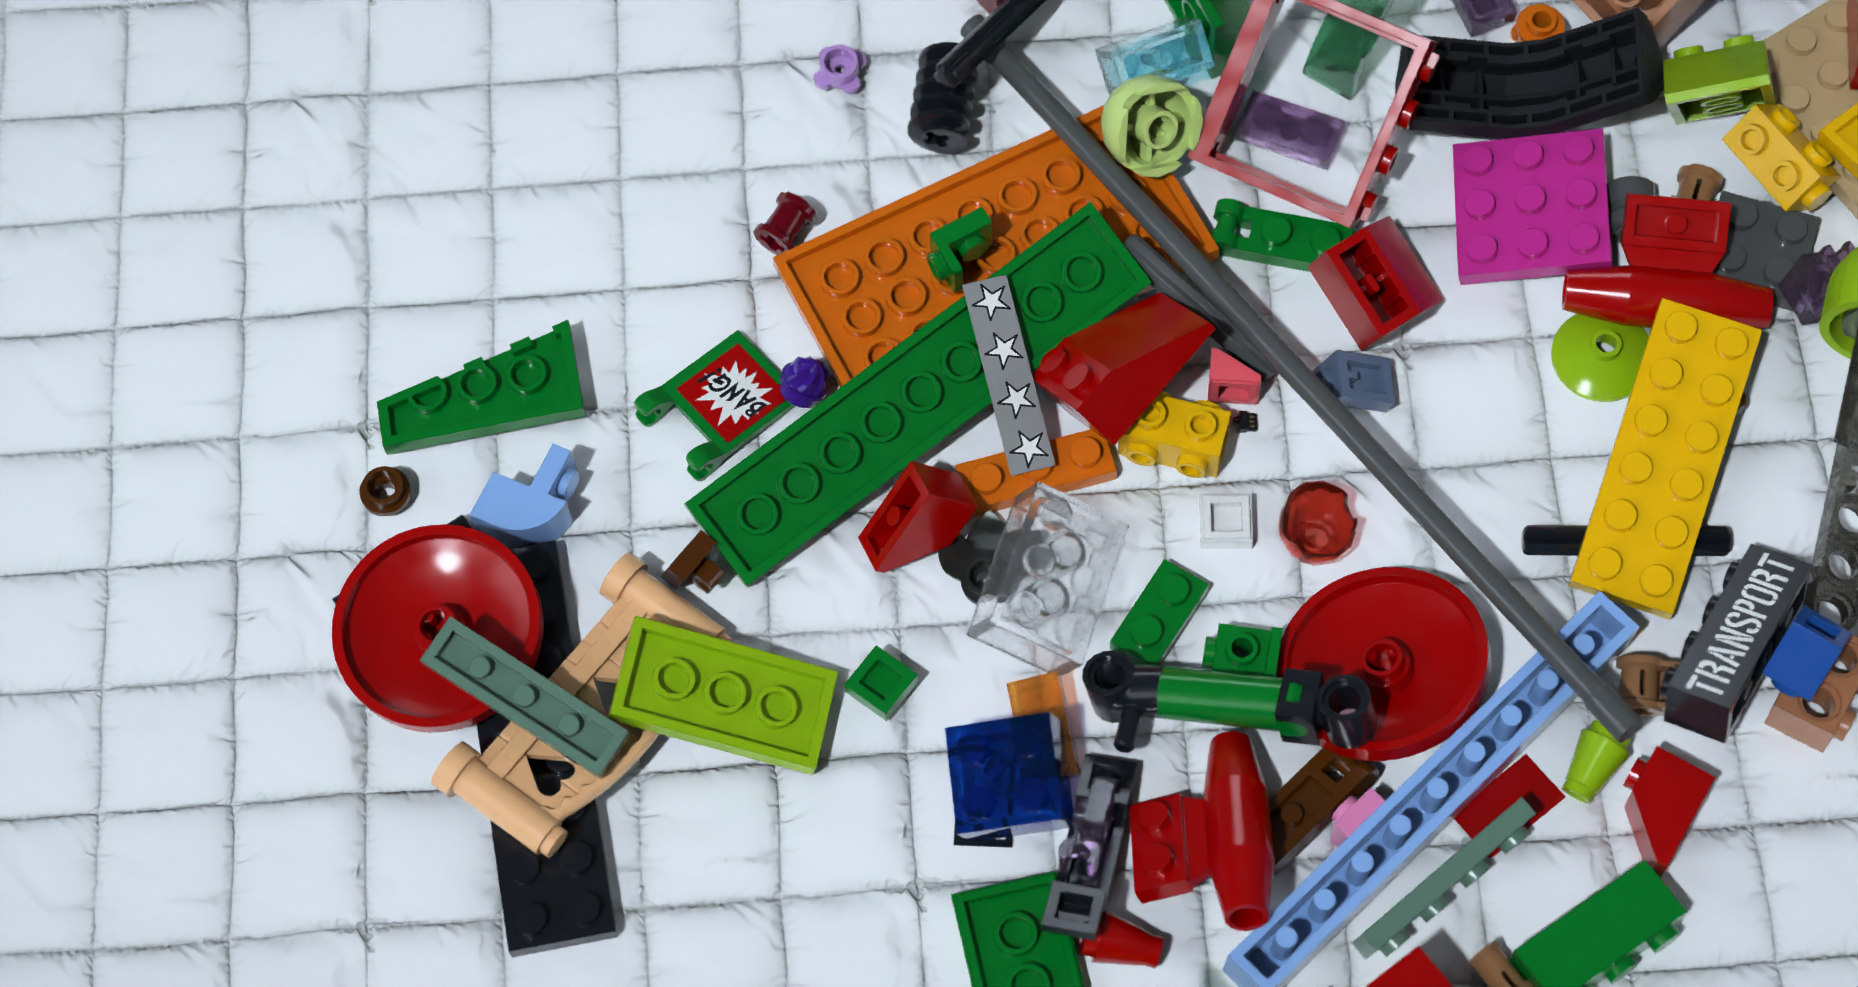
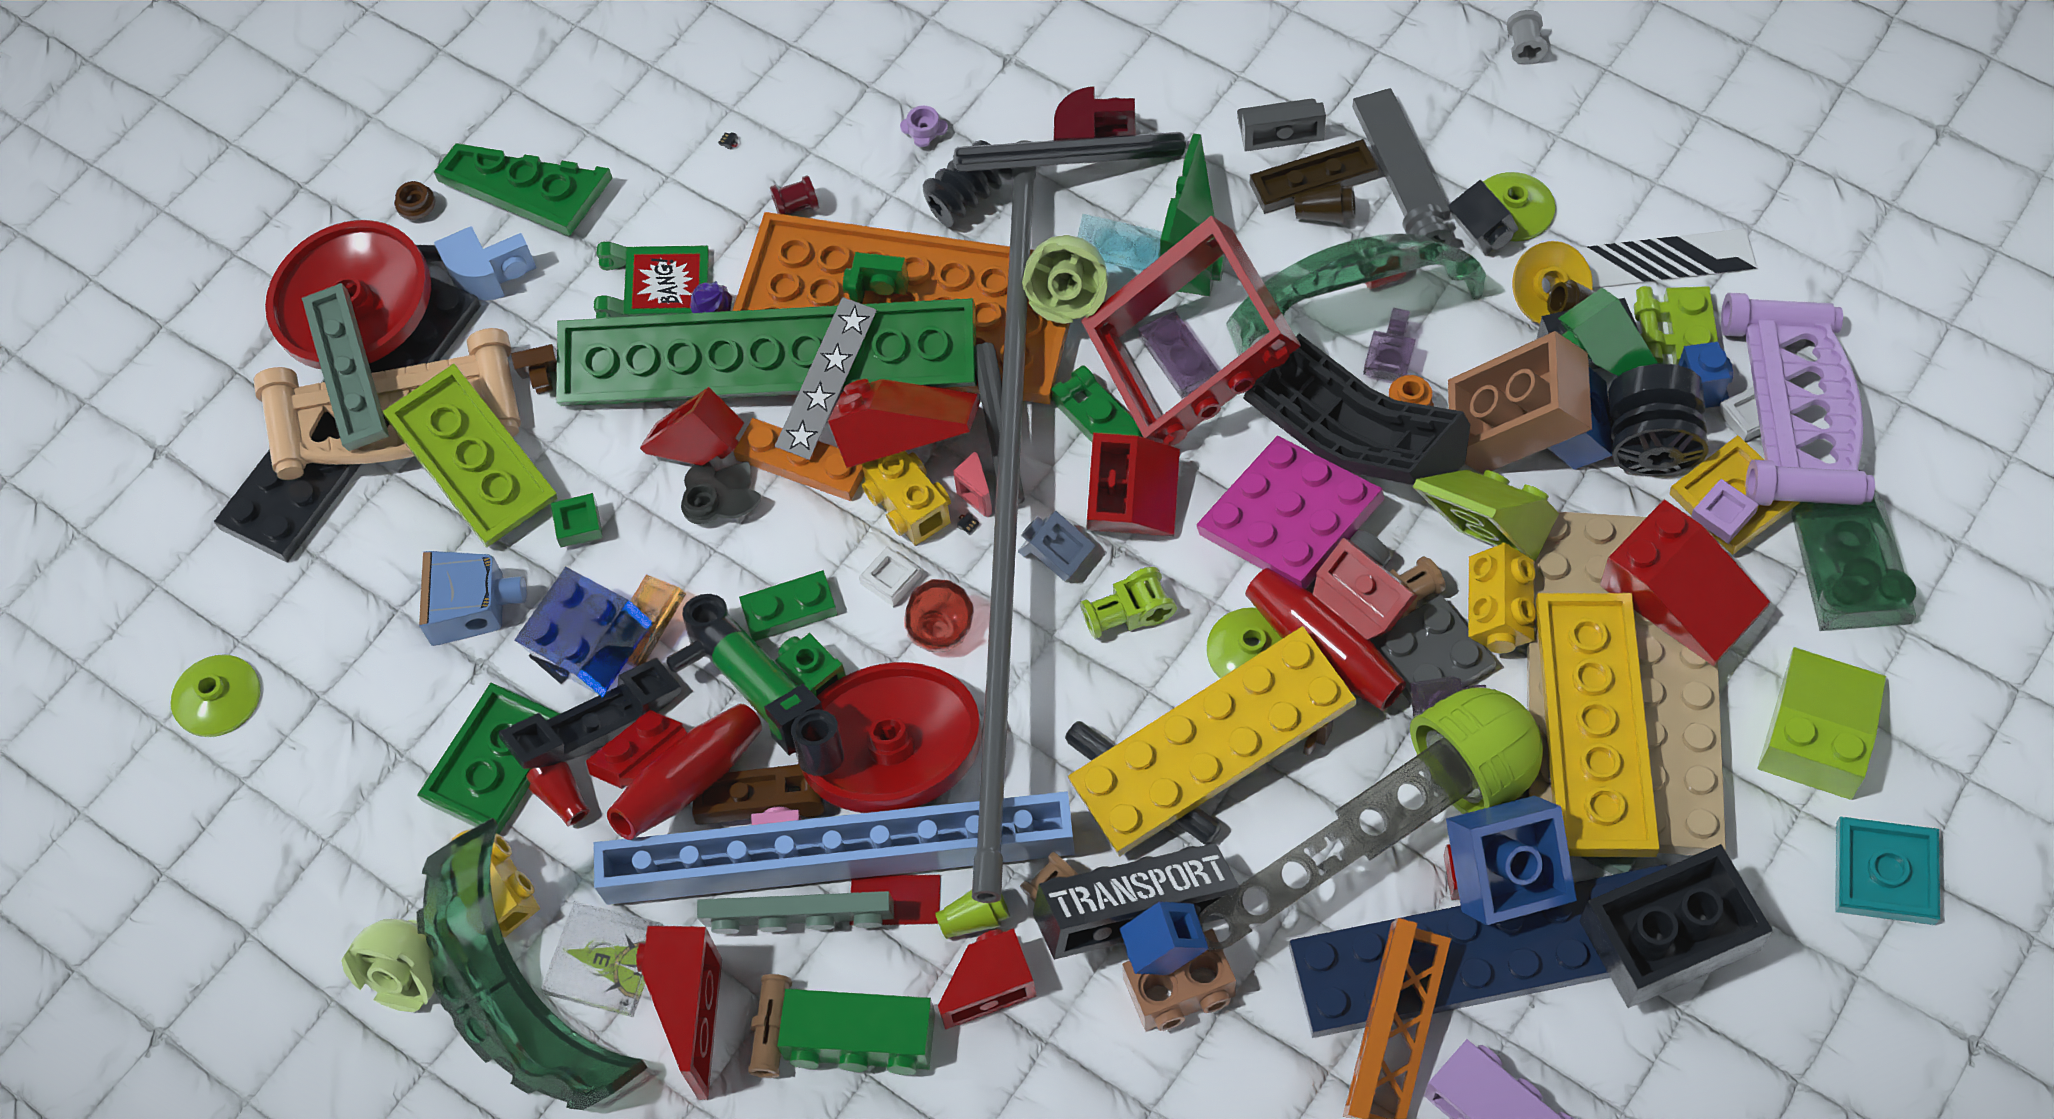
camera: 40 degrees right, 5 degrees down
(650, 212) = (728, 139): none -> black piece
(845, 831) = (464, 595): none -> medium blue torso
(1048, 579) = (728, 524): clear brick -> none
(1093, 820) = (604, 701): plate -> none
(1472, 386) = (1130, 603): none -> lime connector

